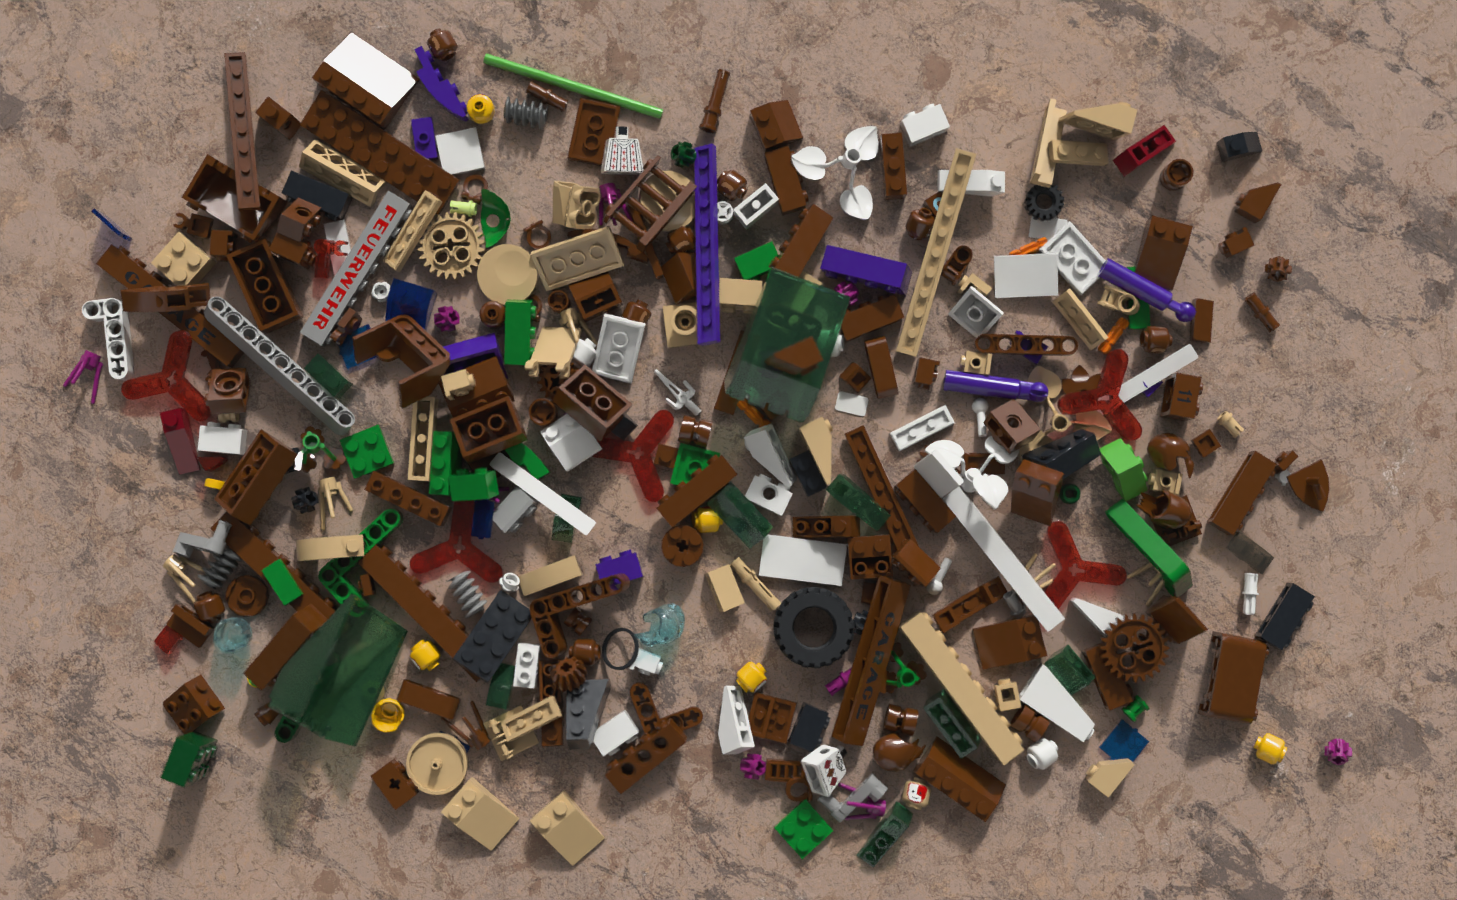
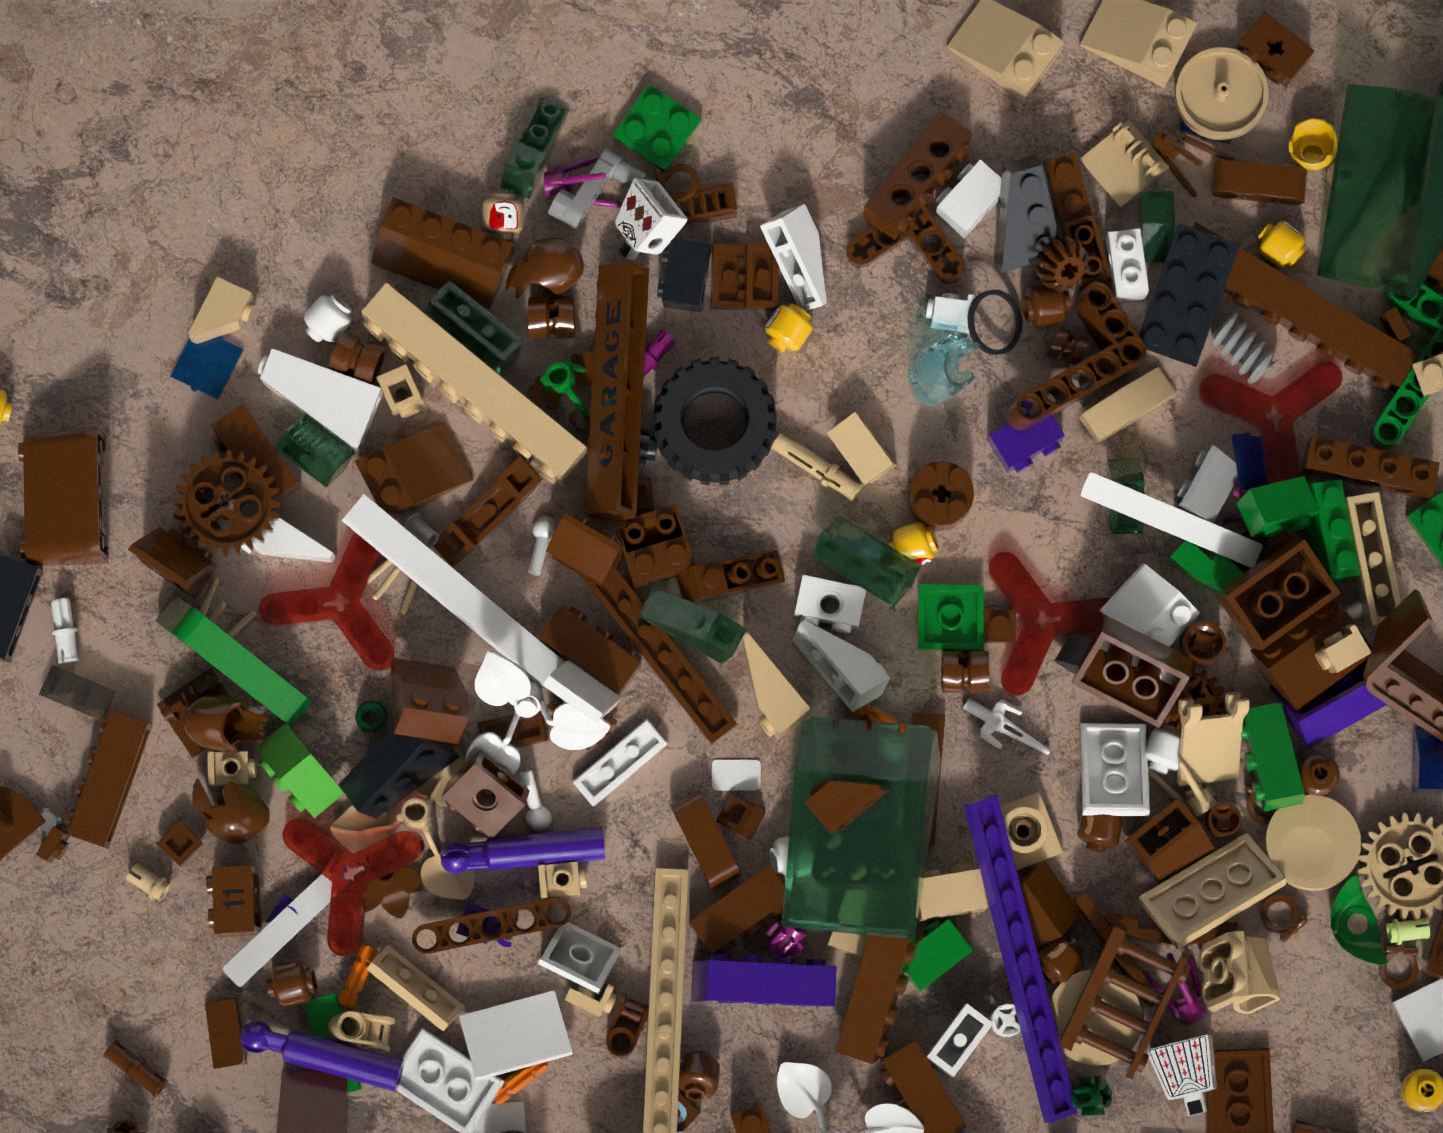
camera: 170 degrees right, 5 degrees down
(446, 318) = (1387, 752): magenta gear -> none
(509, 582) = (1185, 381): white plate -> none
(525, 113) = (1352, 1100): dark grey piece -> none
(531, 719) = (1100, 187): tan plate -> none
(696, 491) = (940, 581): reddish brown brick -> none
(732, 185) = (1004, 1066): reddish brown head -> none
(752, 766) = (755, 198): magenta gear -> none
(802, 560) = (753, 520): white tile -> none
(807, 473) = (780, 647): black brick -> none
(925, 373) = (635, 846): reddish brown brick -> none
(1135, 708) = (202, 418): green bush -> none

